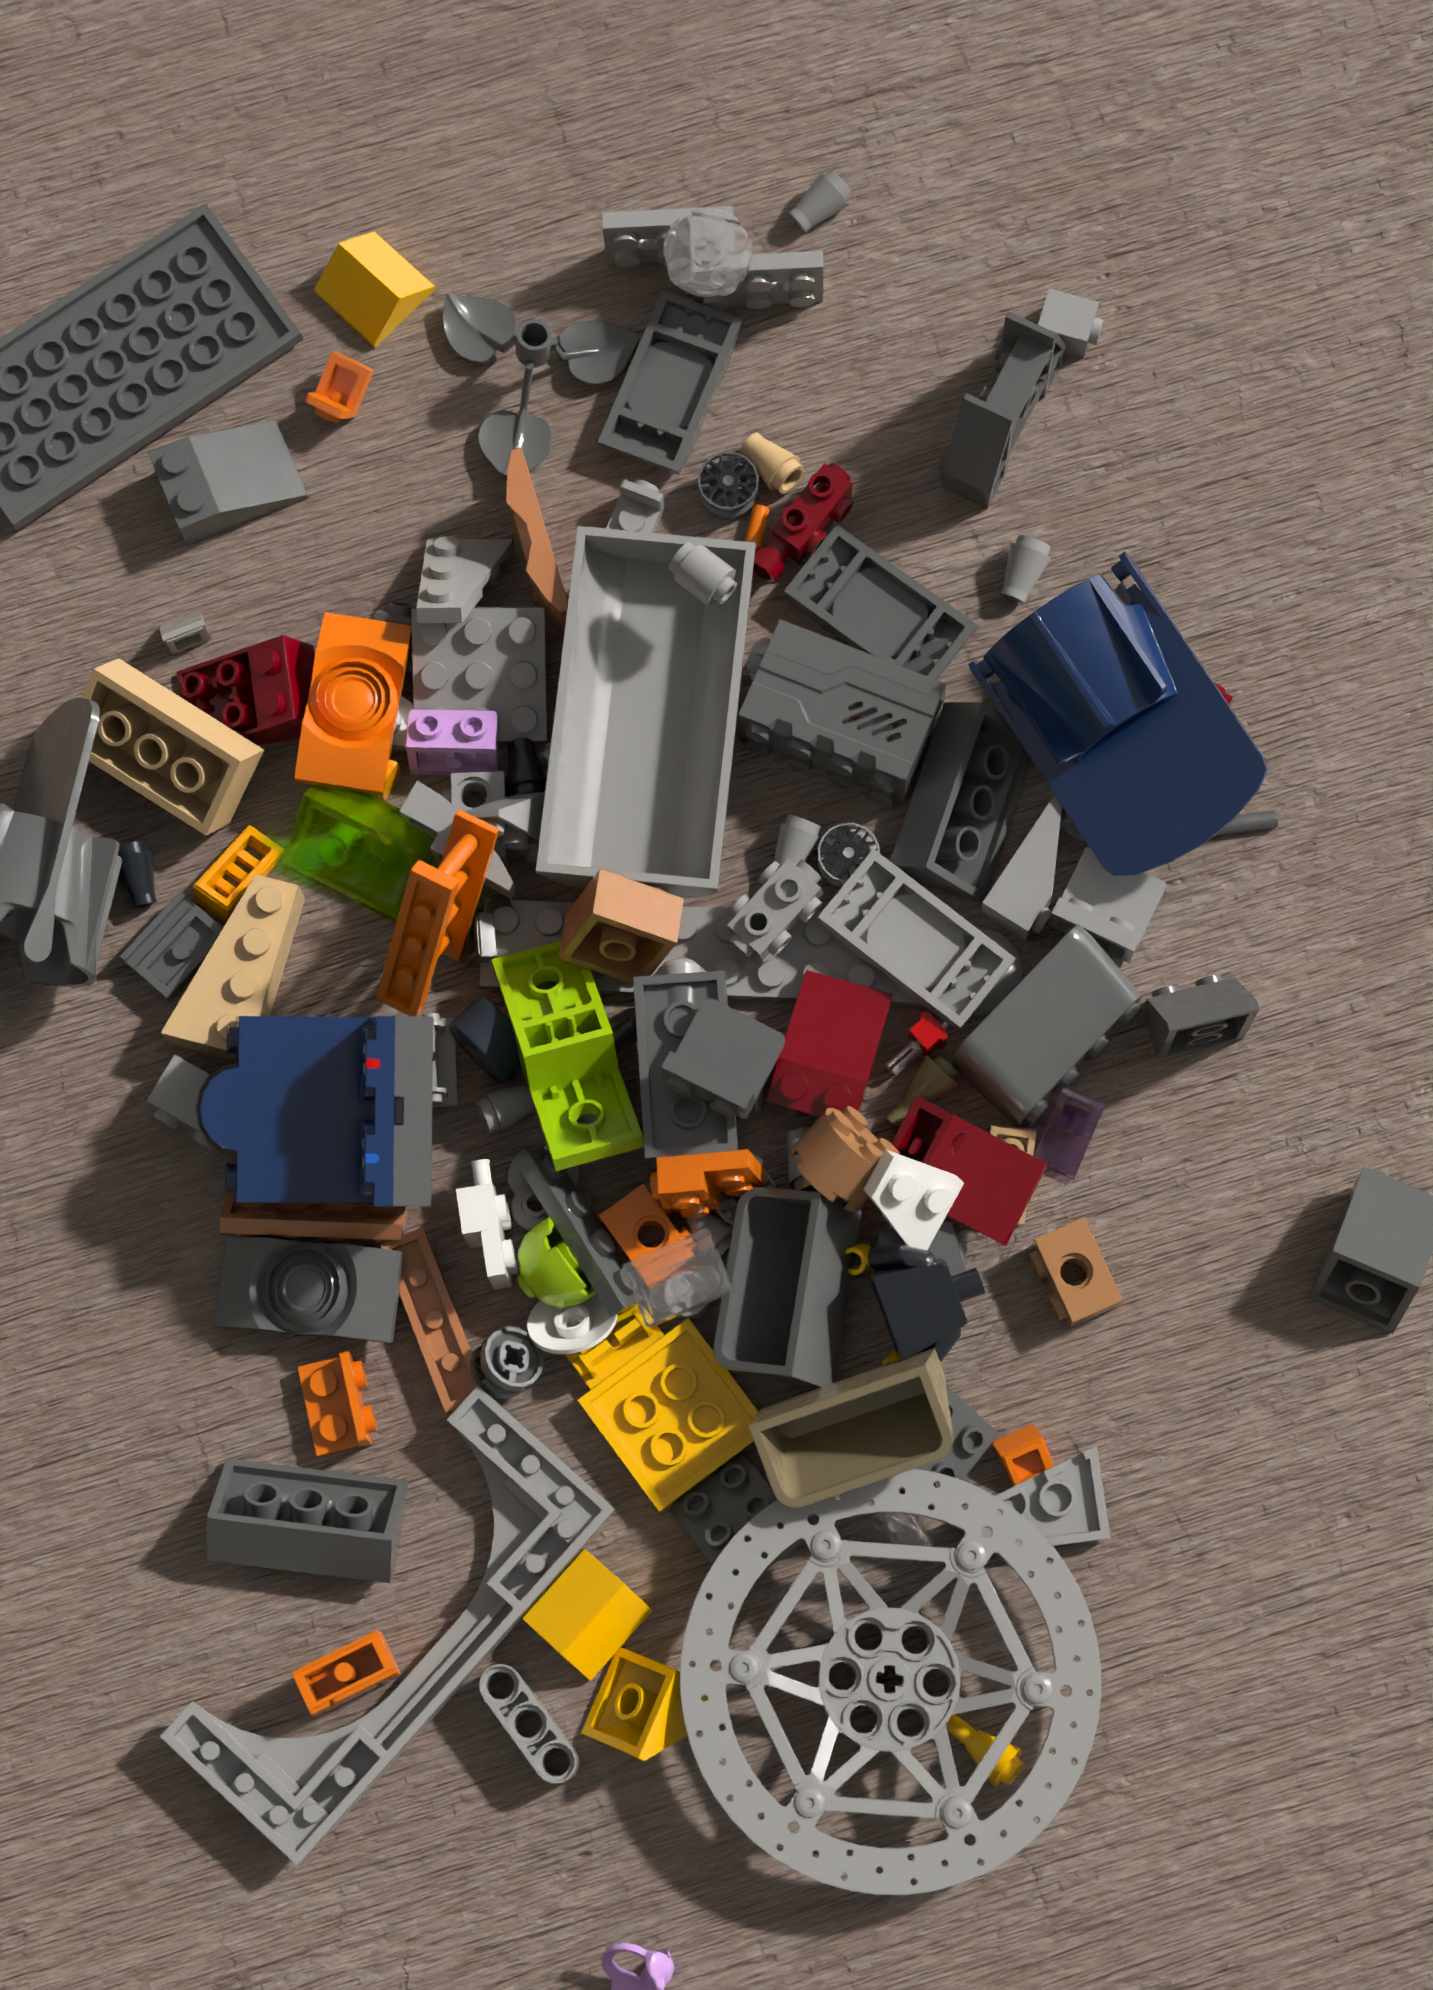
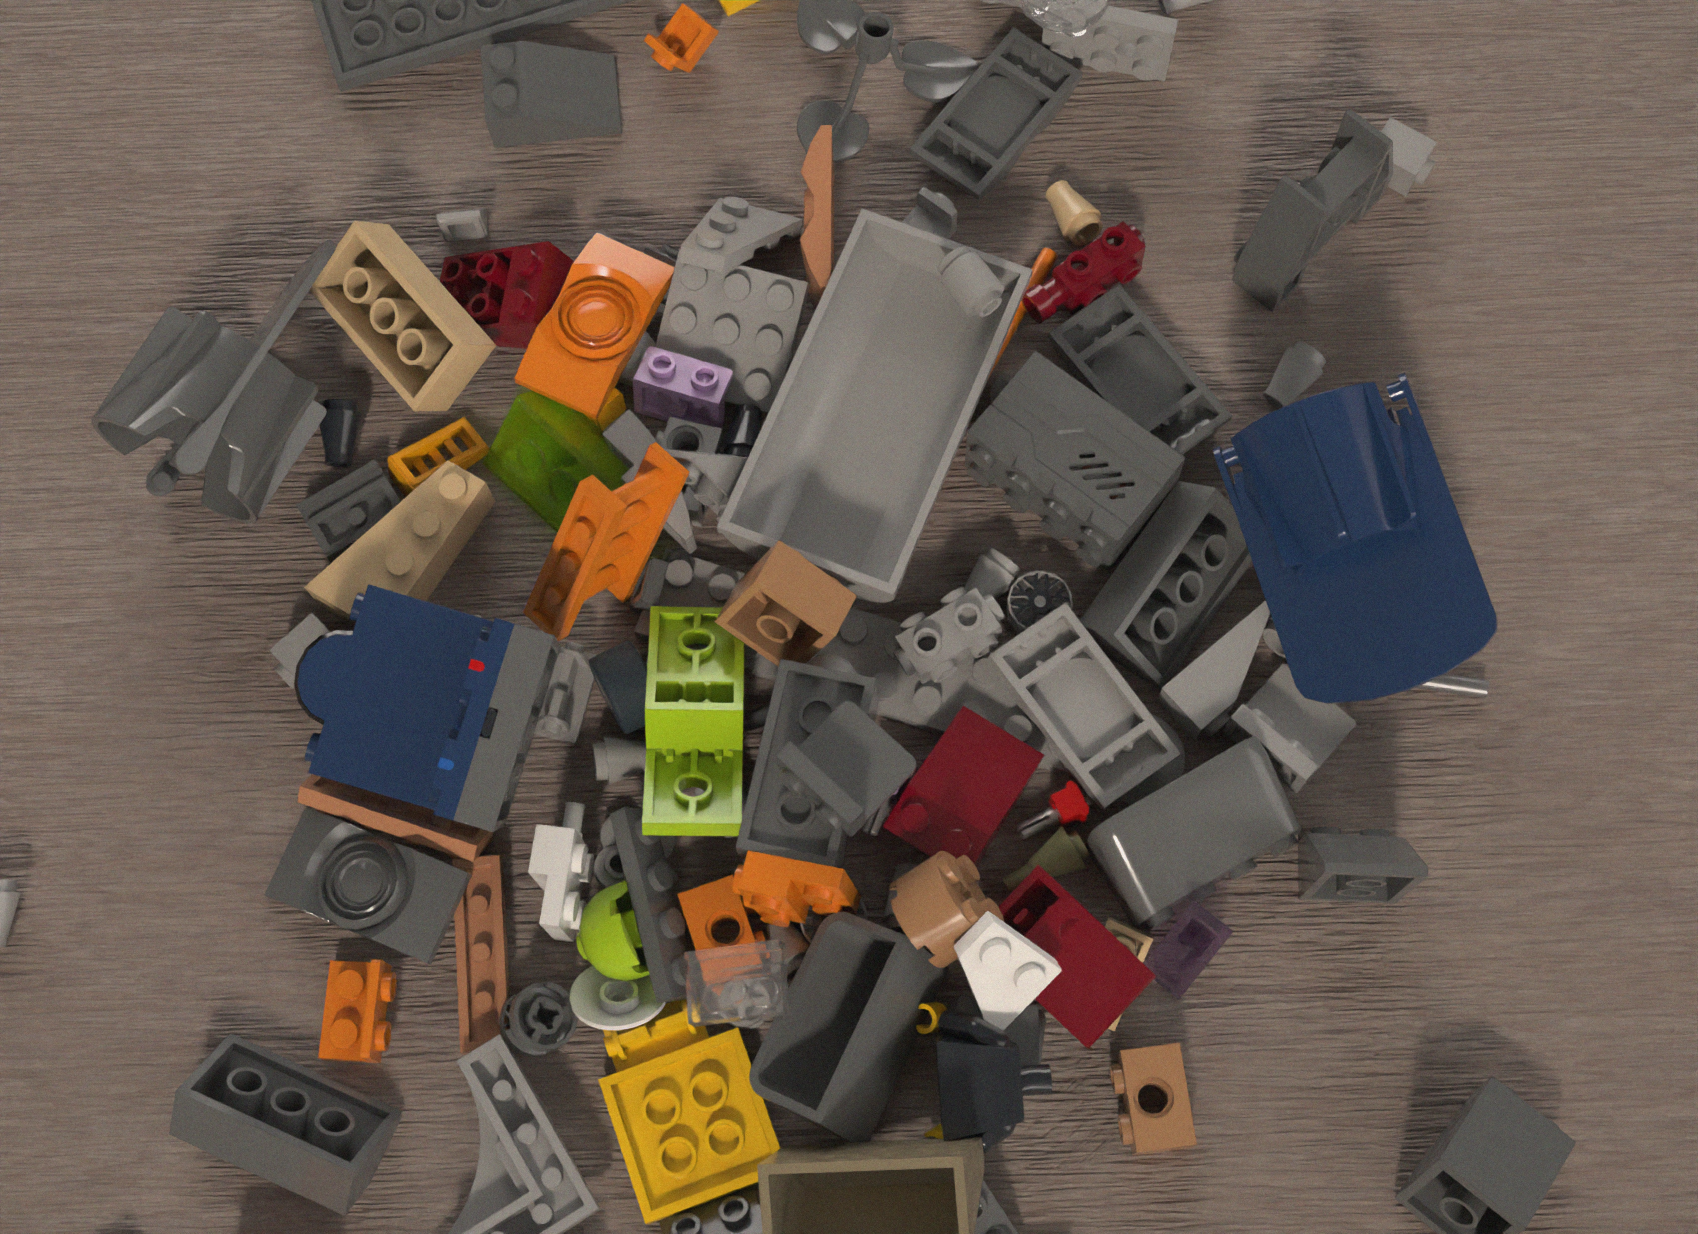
camera: 15 degrees right, 5 degrees down
(728, 487) = (1023, 224): dark grey wheel -> none

